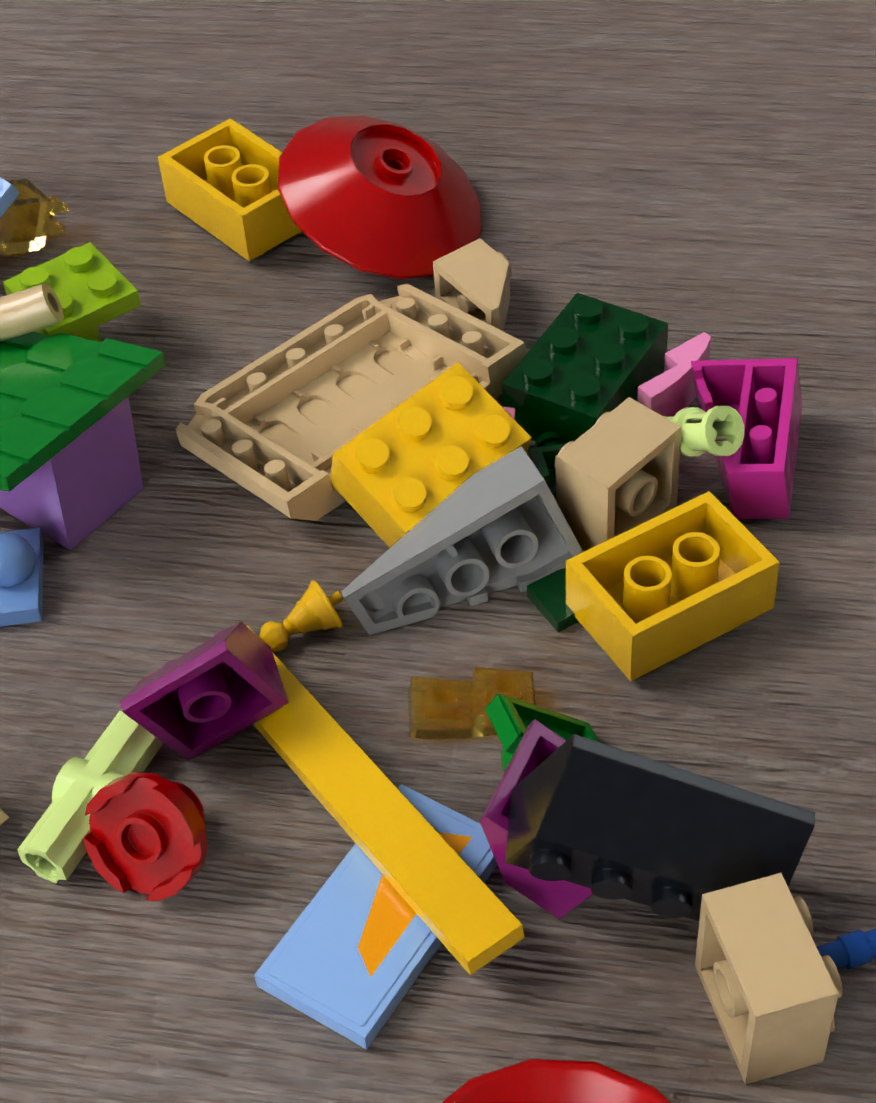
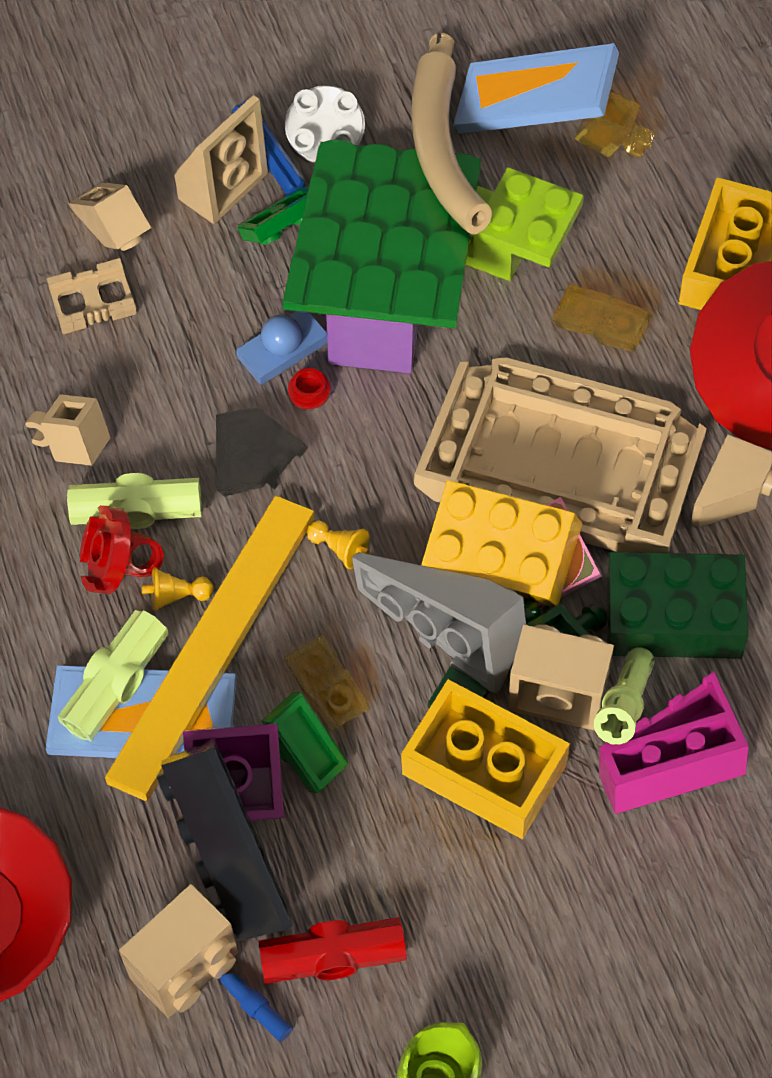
camera: 60 degrees right, 15 degrees up
(89, 571) = (309, 388): none -> red plate
(116, 648) = (252, 451): none -> clear smoke slope
(208, 692) = (228, 518): magenta slope -> none
(215, 309) = (603, 316): none -> clear yellow slope
(236, 809) = (169, 589): none -> yellow piece
(325, 903) = (113, 675): none -> yellowish green piece
(675, 386) = (732, 672): bright pink slope -> none
(837, 799) = (332, 950): none -> red piece

